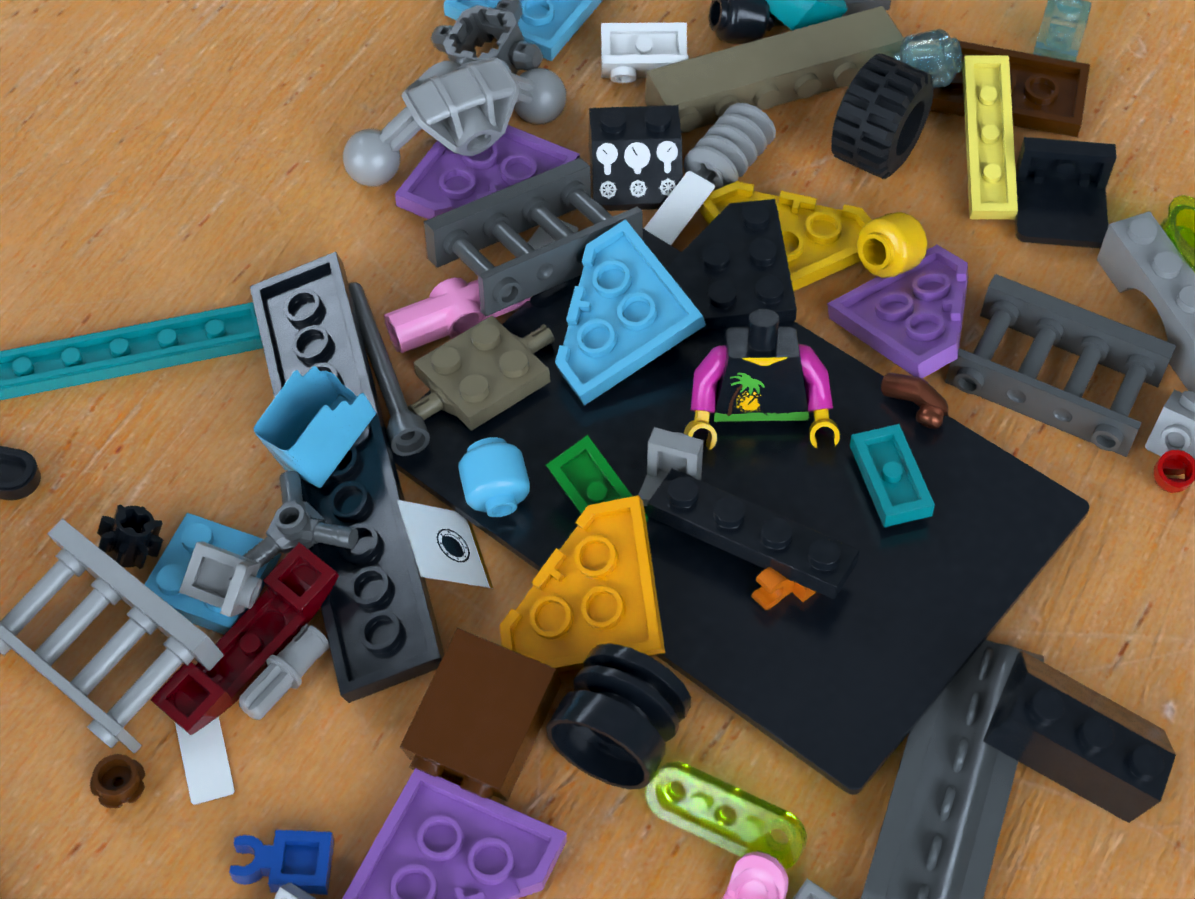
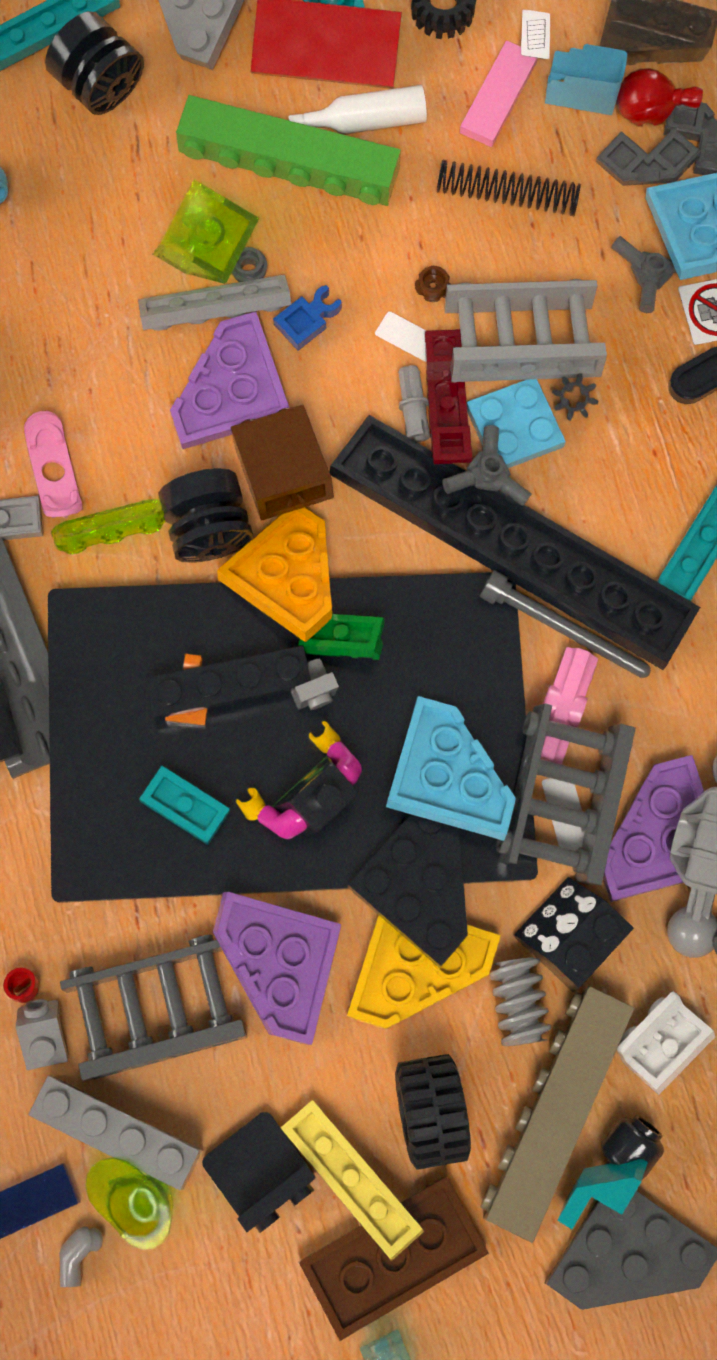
camera: 135 degrees right, 20 degrees up
(222, 579) = (488, 406): light grey bracket -> none
(313, 424) = (545, 501): medium azure piece -> none
(444, 545) = (403, 540): white sticker -> none
(482, 372) = (496, 669): dark tan plate -> none
(494, 477) = (411, 595): medium azure head -> none
(679, 207) = (506, 916): white sticker -> none
(892, 244) = (332, 999): yellow head -> none
(920, 392) = (204, 881): copper arm -> none
(932, 53) = (447, 1205): clear light blue head -> none

